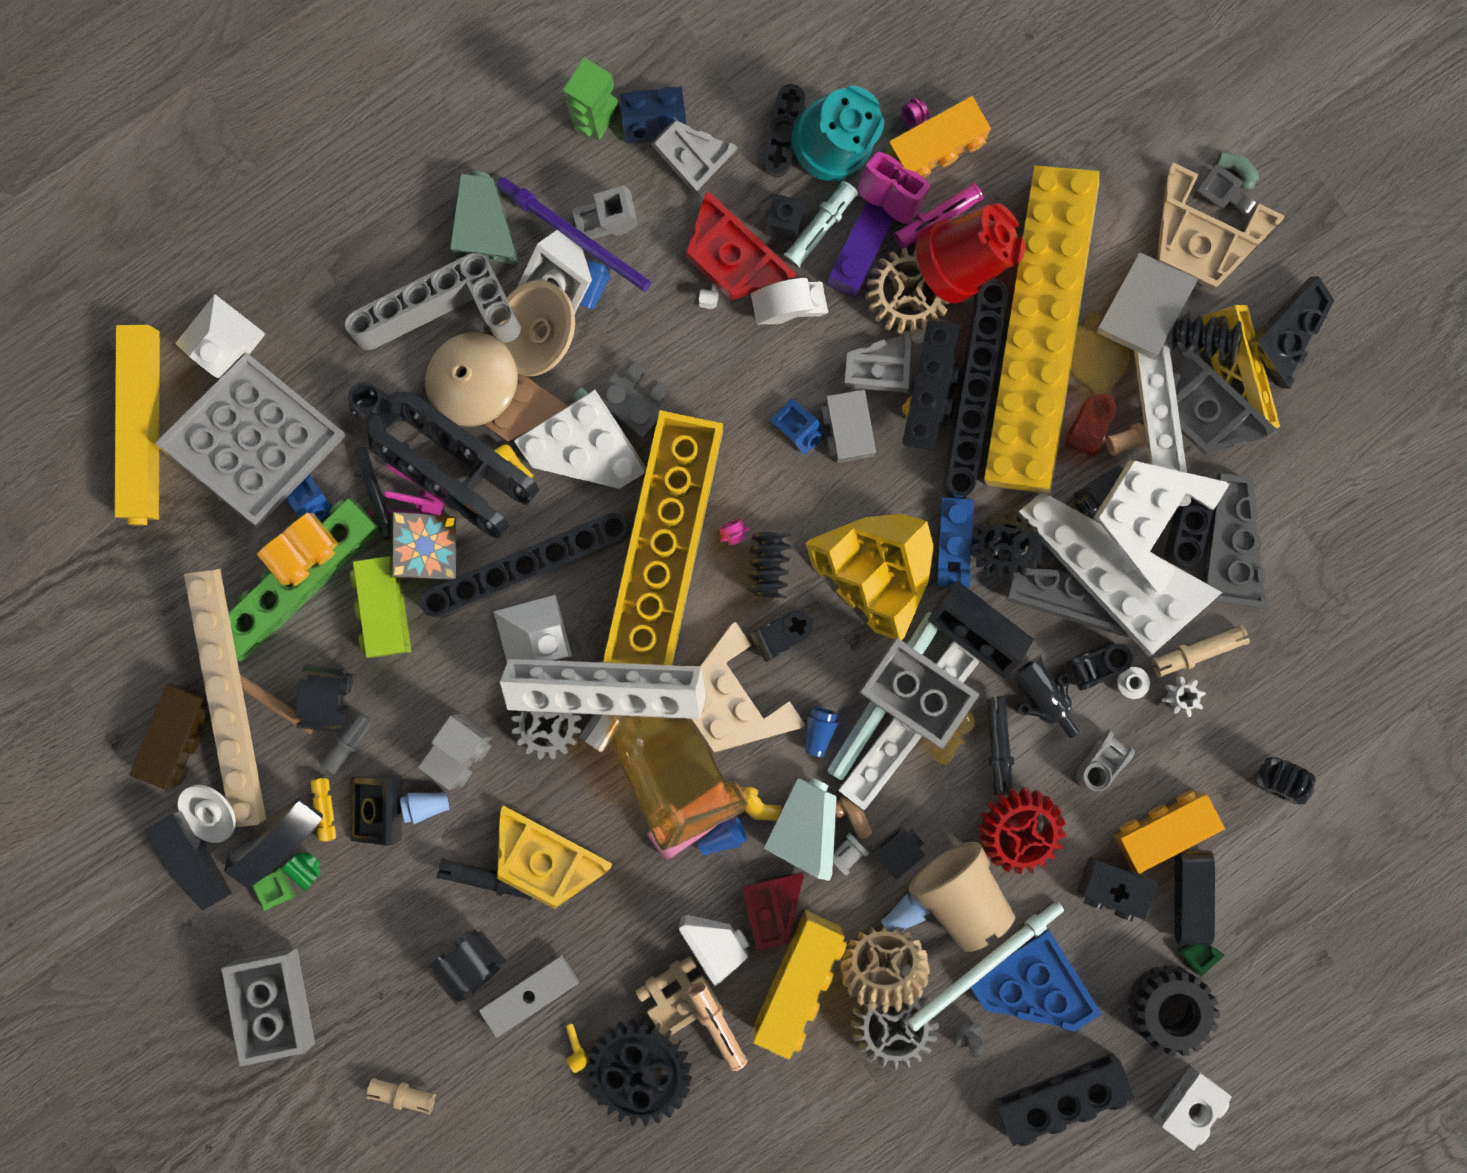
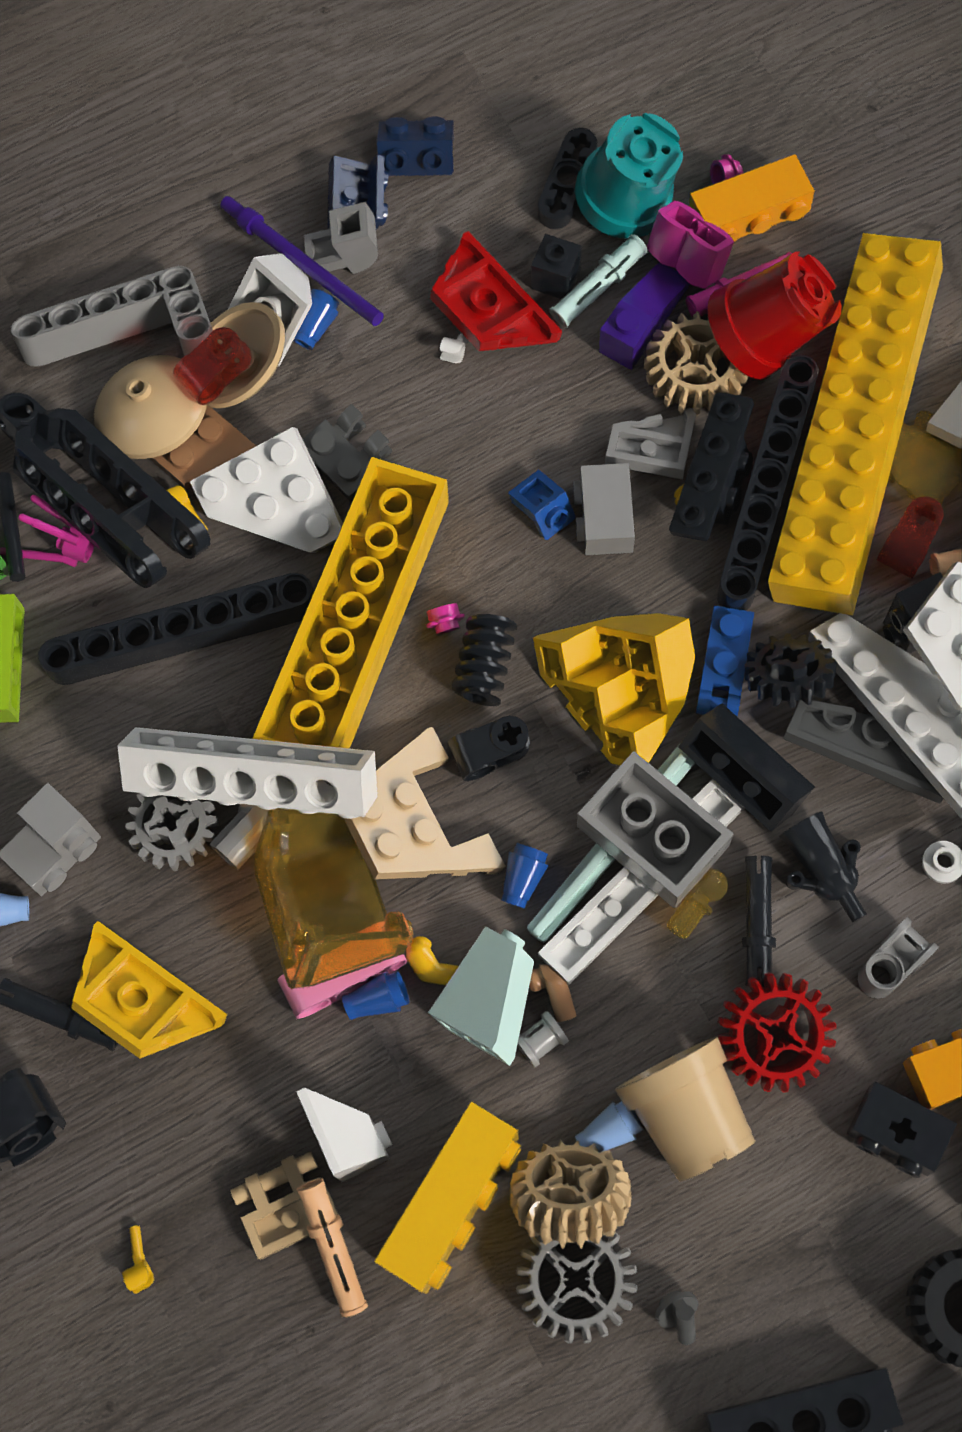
camera: 15 degrees right, 15 degrees down
(422, 546) = (54, 589): tile -> none
(481, 221) = (195, 237): sand green slope -> none
(513, 1005) = (63, 1186): light grey tile -> none
(515, 352) = (208, 367): none -> clear red piece
(533, 631) = (175, 703): white slope -> none
(590, 99) = (336, 104): bright green arch -> none
(610, 163) = (358, 182): none -> dark blue bracket
(622, 1092) = (190, 1331): black gear -> none
(692, 153) = (454, 187): light grey wing -> none
(773, 908) = (430, 1100): dark red wing -> none
(789, 300) = (548, 353): white brick -> none
(900, 852) = (610, 1044): black brick -> none
(1033, 926) = (781, 1169): light aqua bar -> none
(1037, 987) = (779, 1253): blue plate -> none
(1094, 665) = (892, 833): black piece -> none

